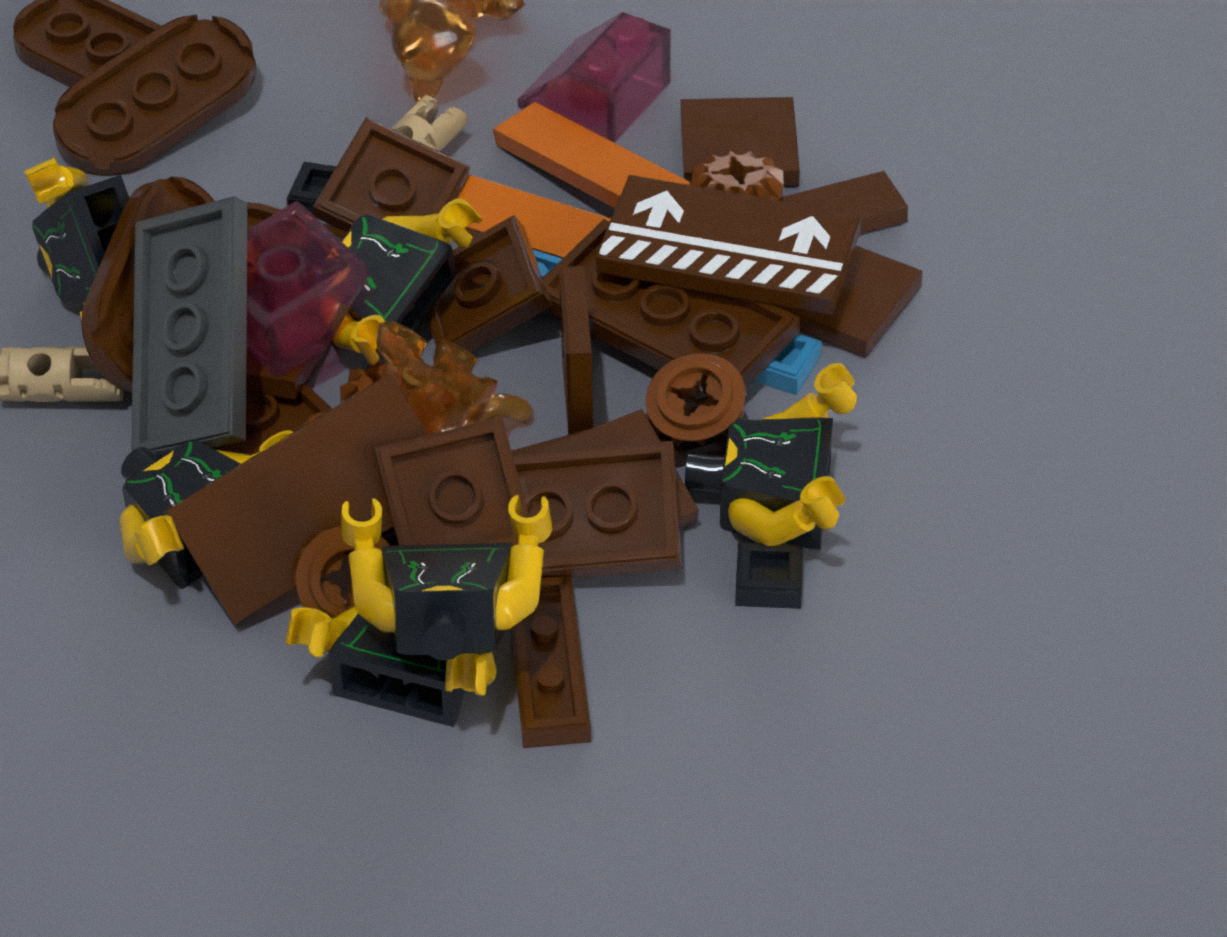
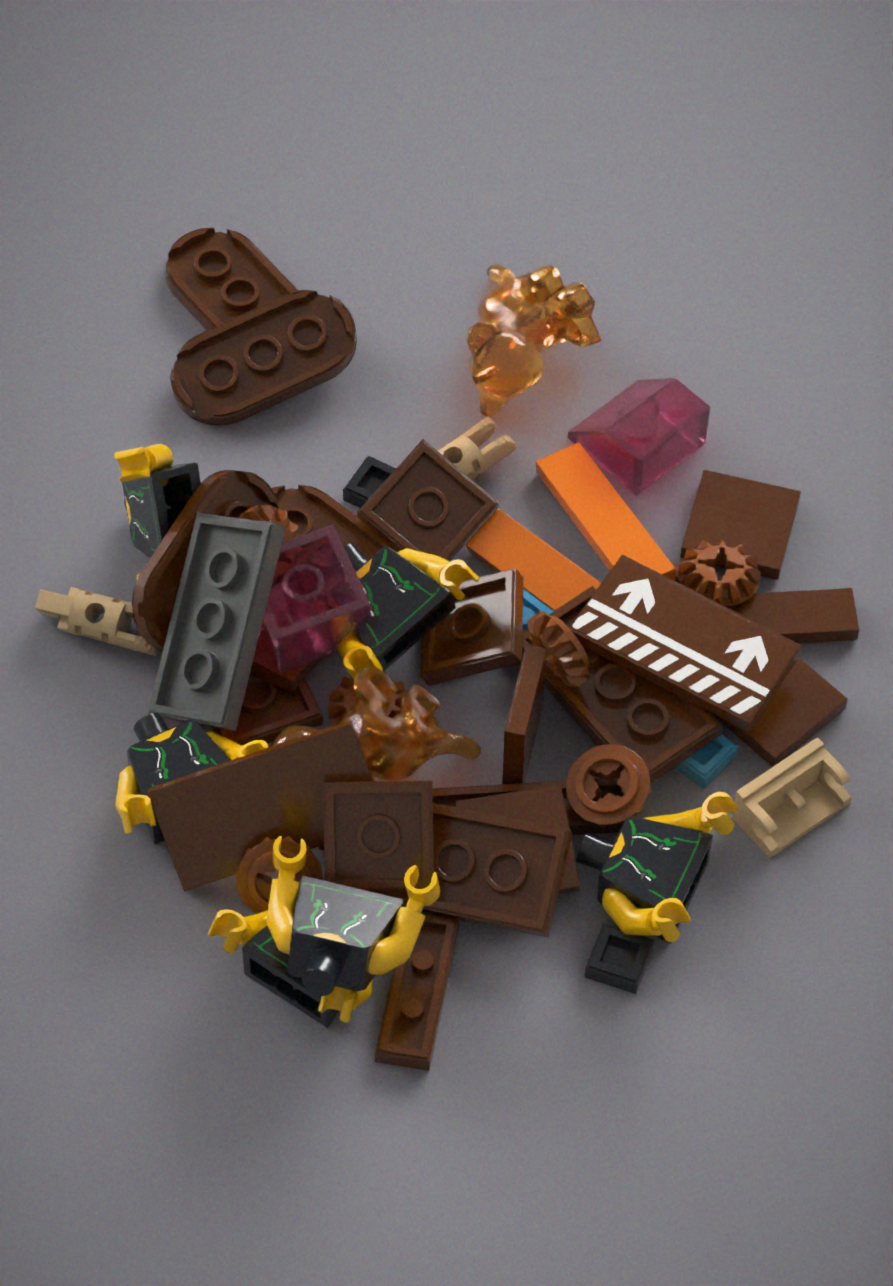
camera: 15 degrees right, 10 degrees up
(607, 272) = (564, 651): none -> dark orange gear
(903, 373) = (792, 798): none -> tan hinge

